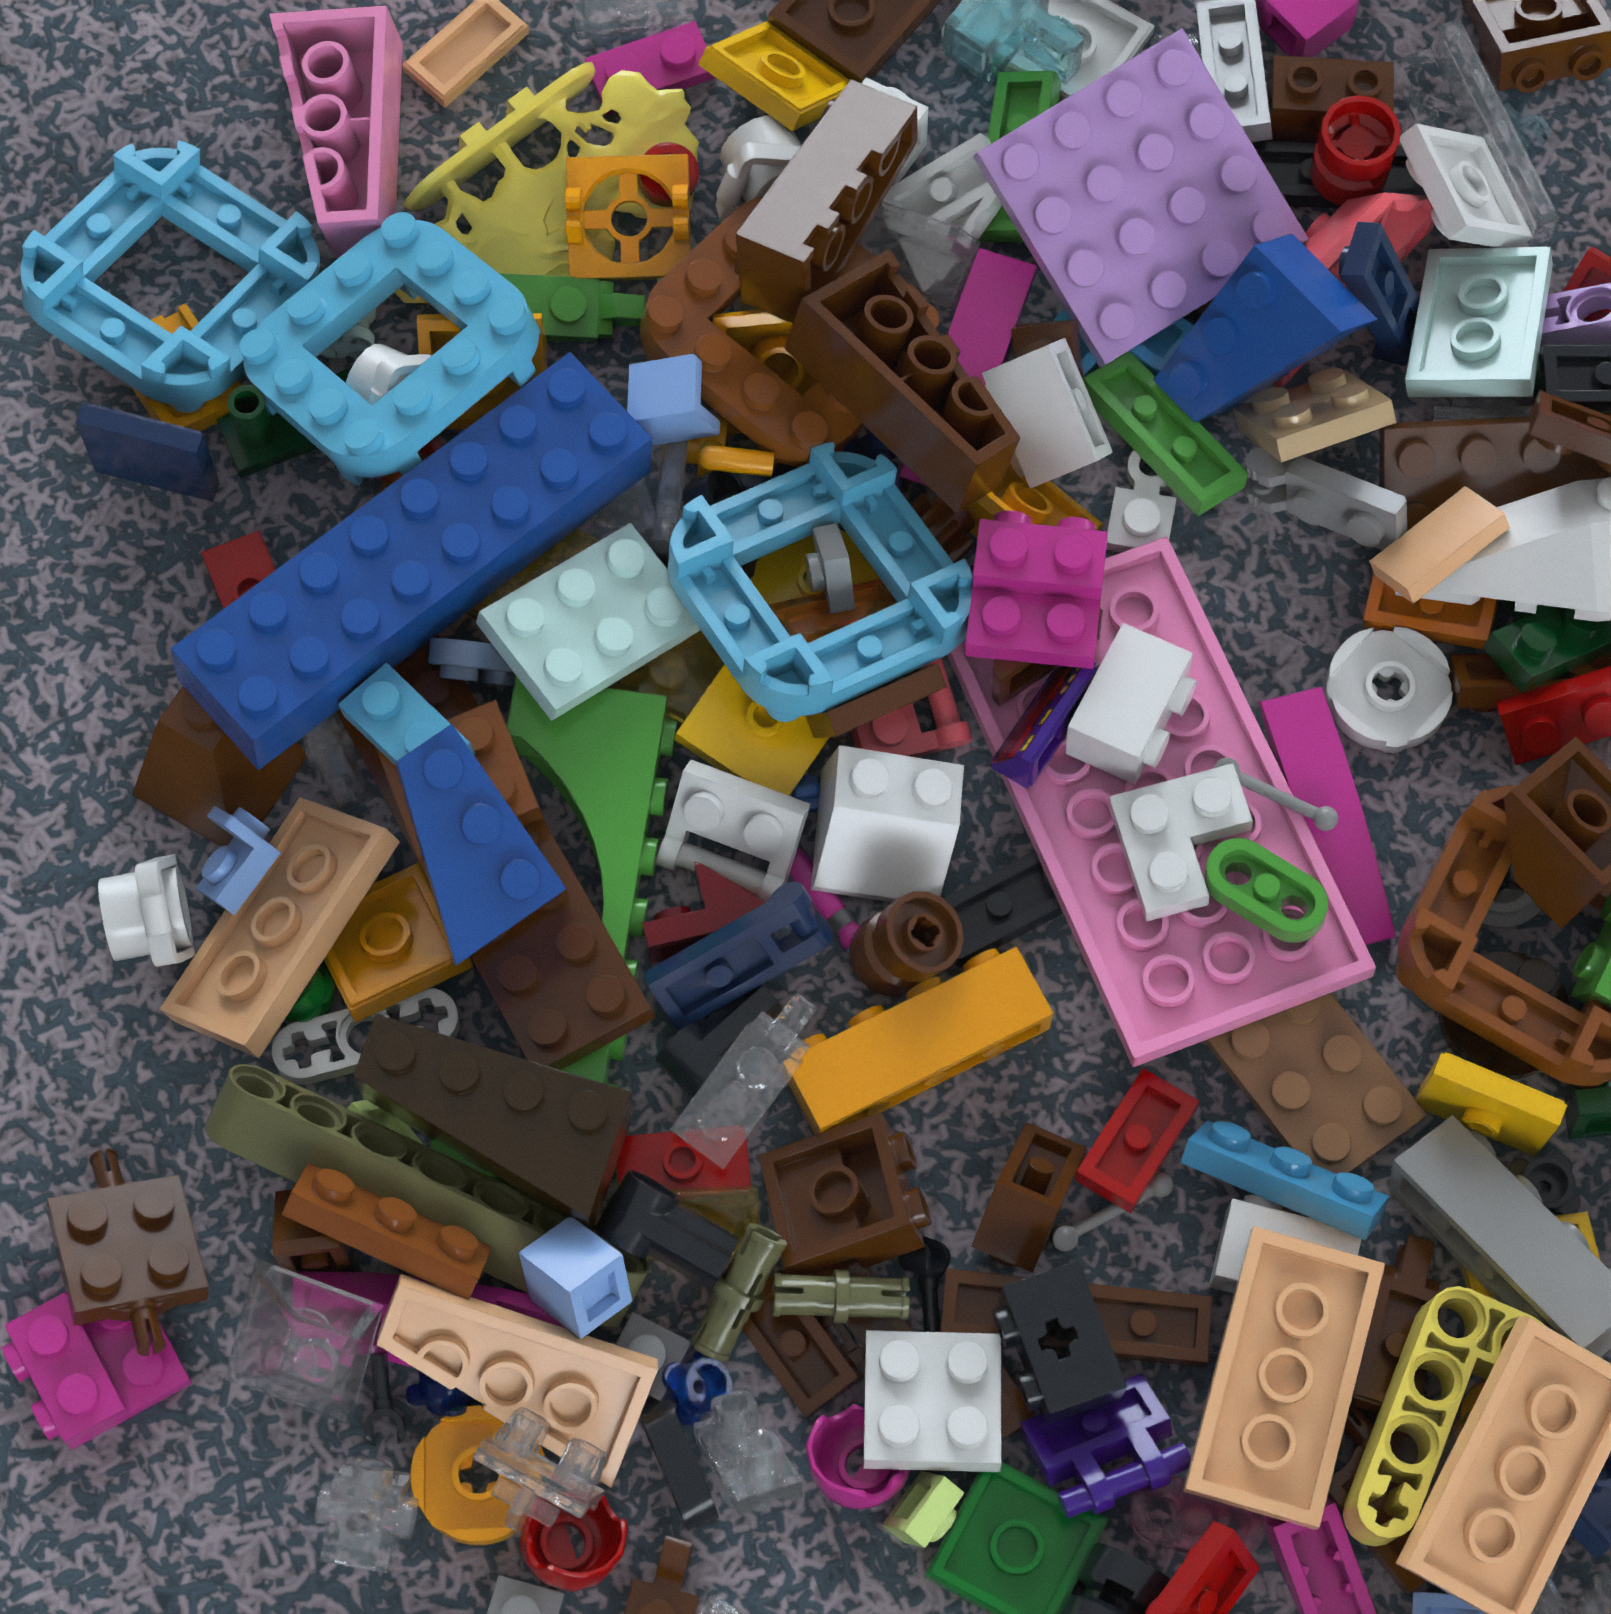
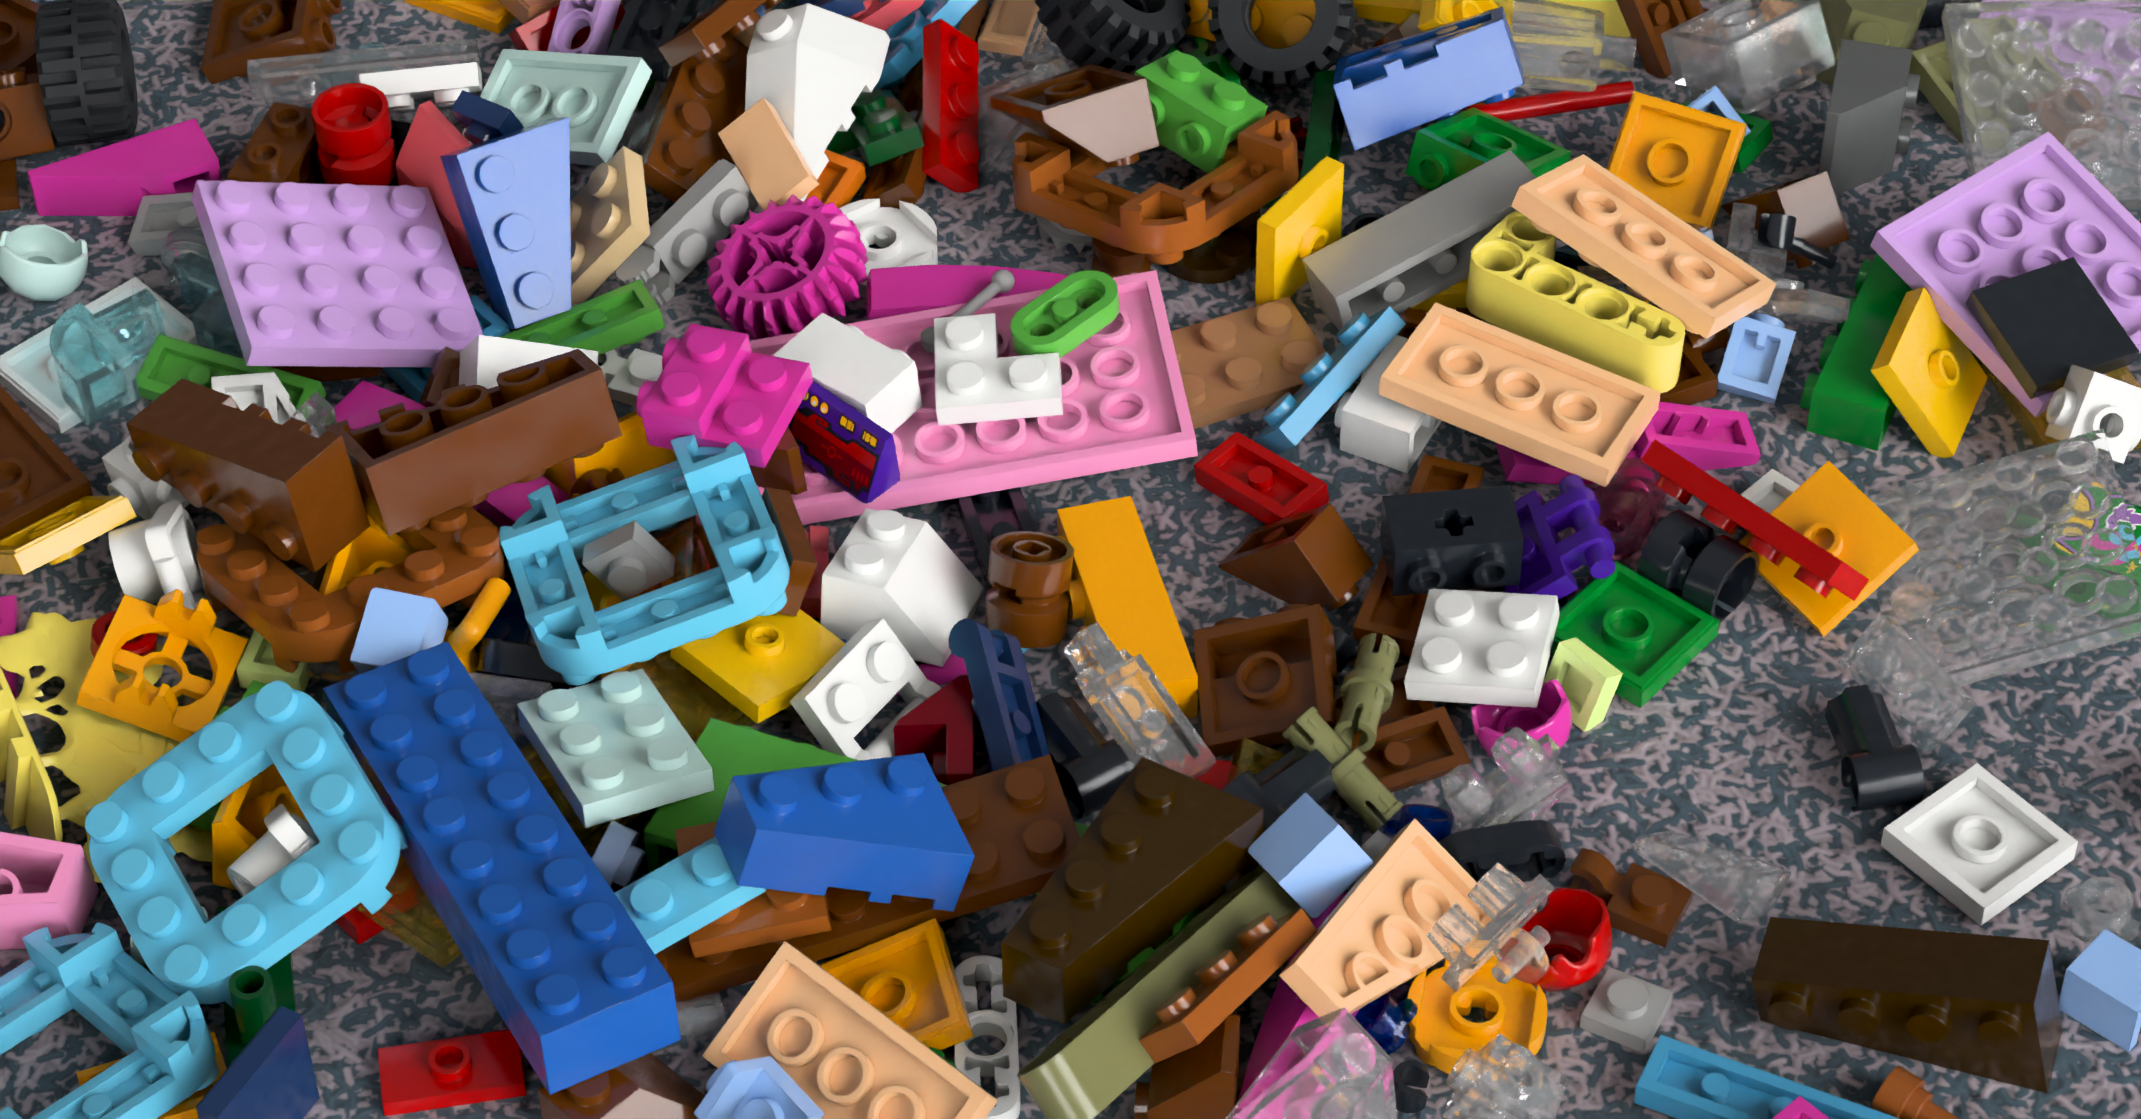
camera: 75 degrees left, 25 degrees down
(1308, 625) = (787, 268): none -> dark pink gear

